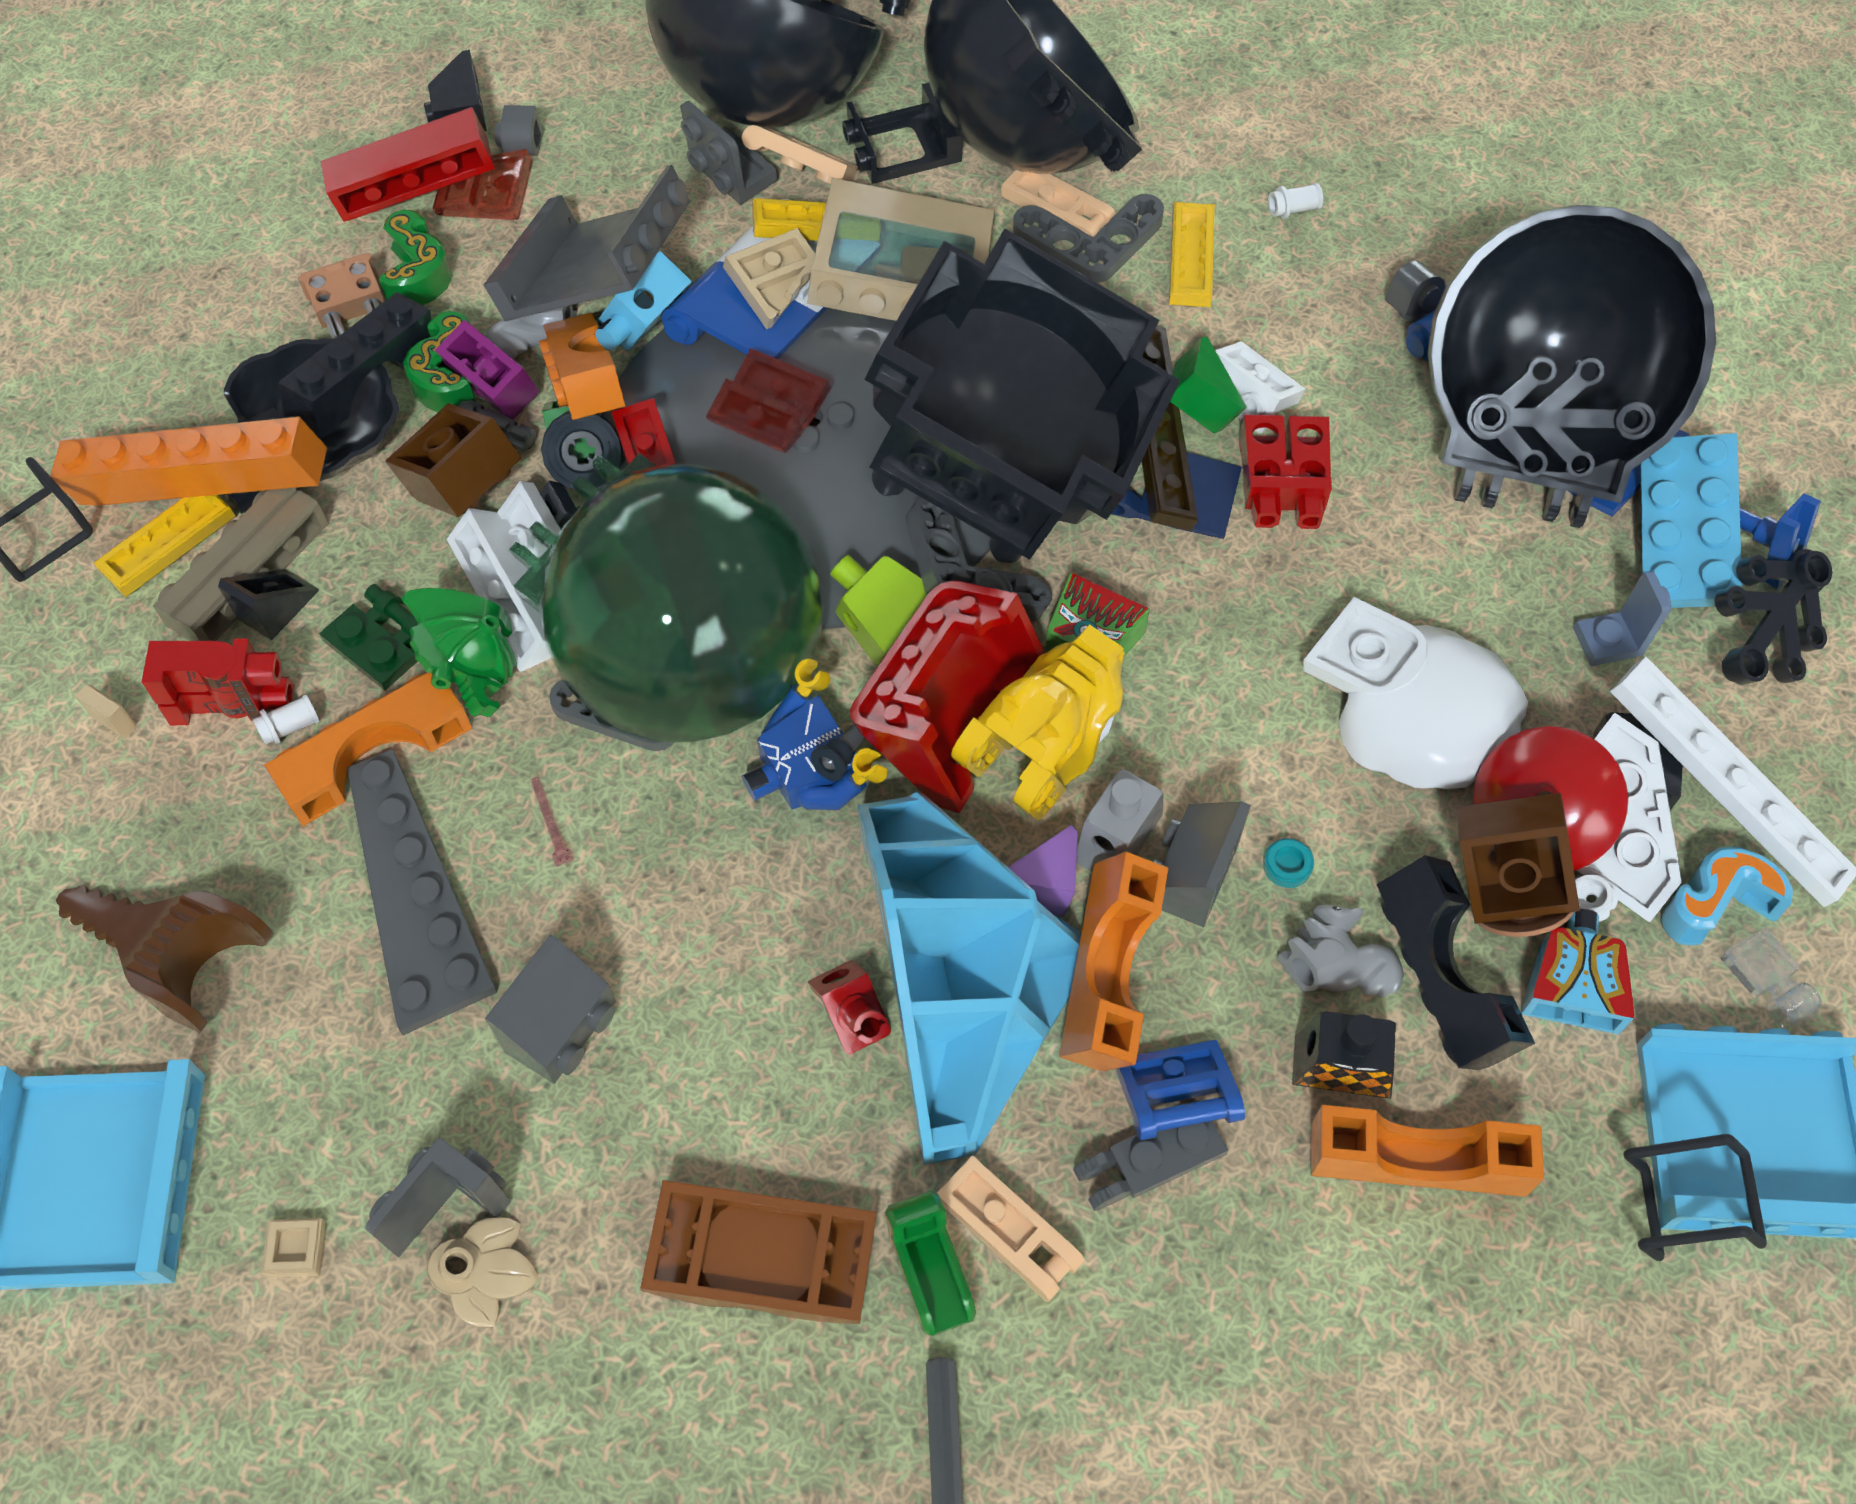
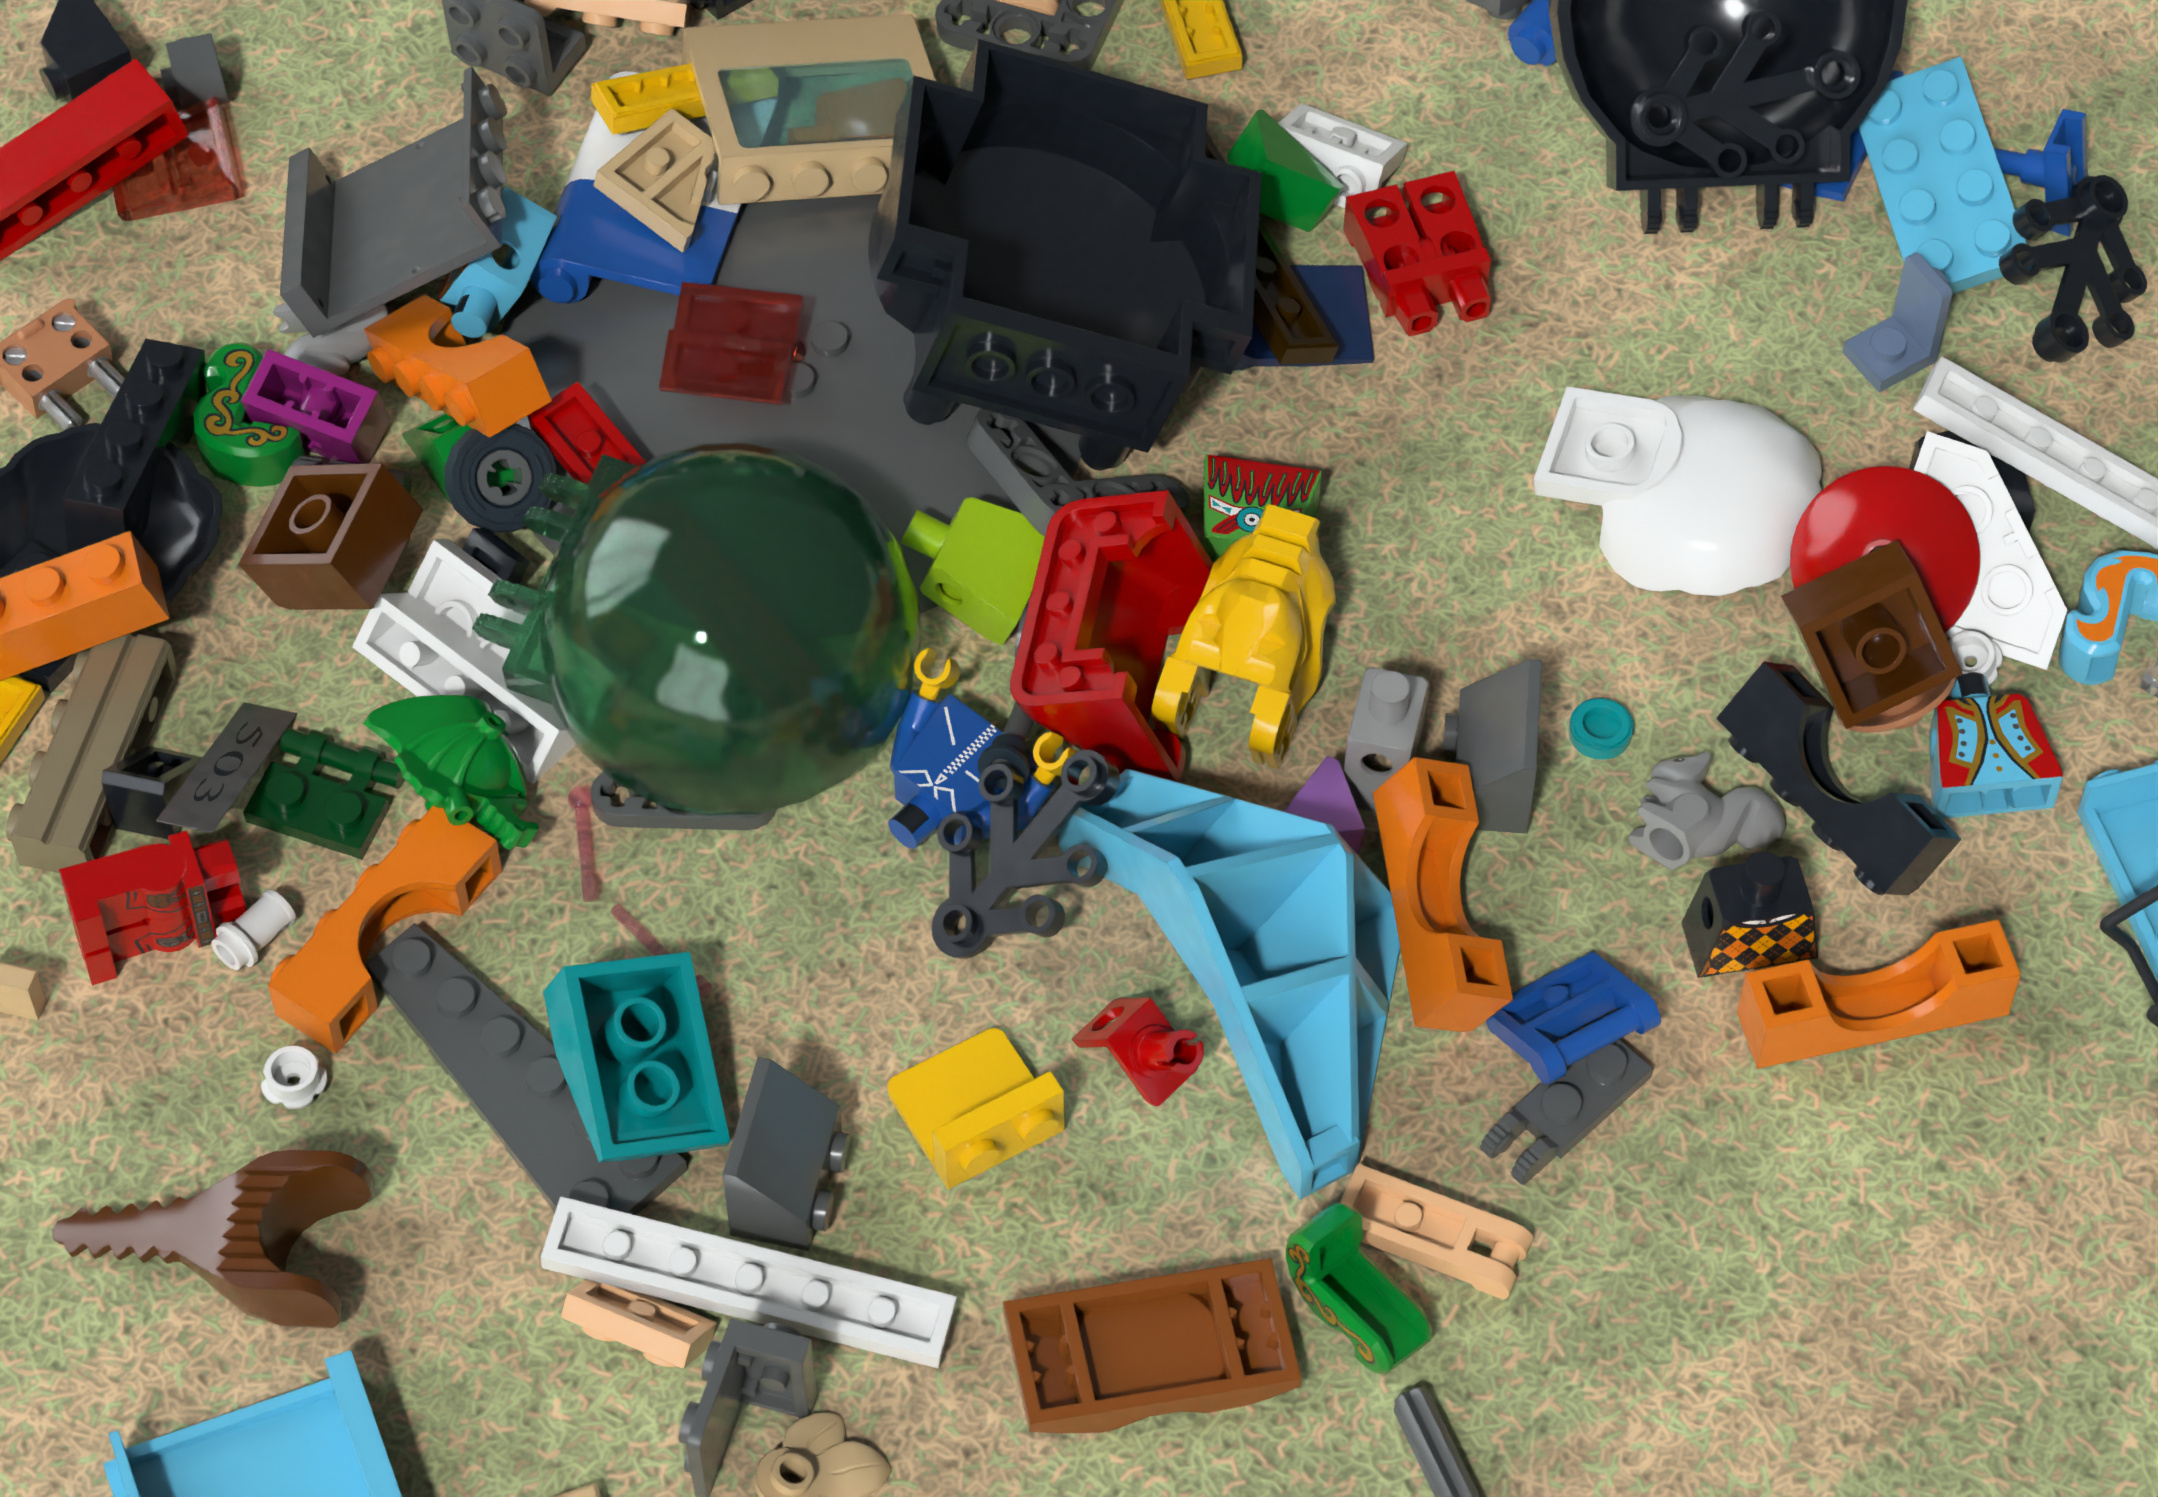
camera: 20 degrees left, 5 degrees down
(257, 825) = (292, 1062): none -> white plate
(311, 601) = (226, 767): none -> flat silver sticker
(405, 1100) = (644, 1322): none -> light nougat plate
(424, 264) = (139, 281): green animal -> none
(486, 902) = (637, 1056): none -> teal slope
(494, 1100) = (748, 1282): none -> white plate
(523, 755) = (580, 800): none -> clear pink hinge
(713, 1013) = (976, 1106): none -> yellow bracket
(811, 833) = (1015, 858): none -> black plant

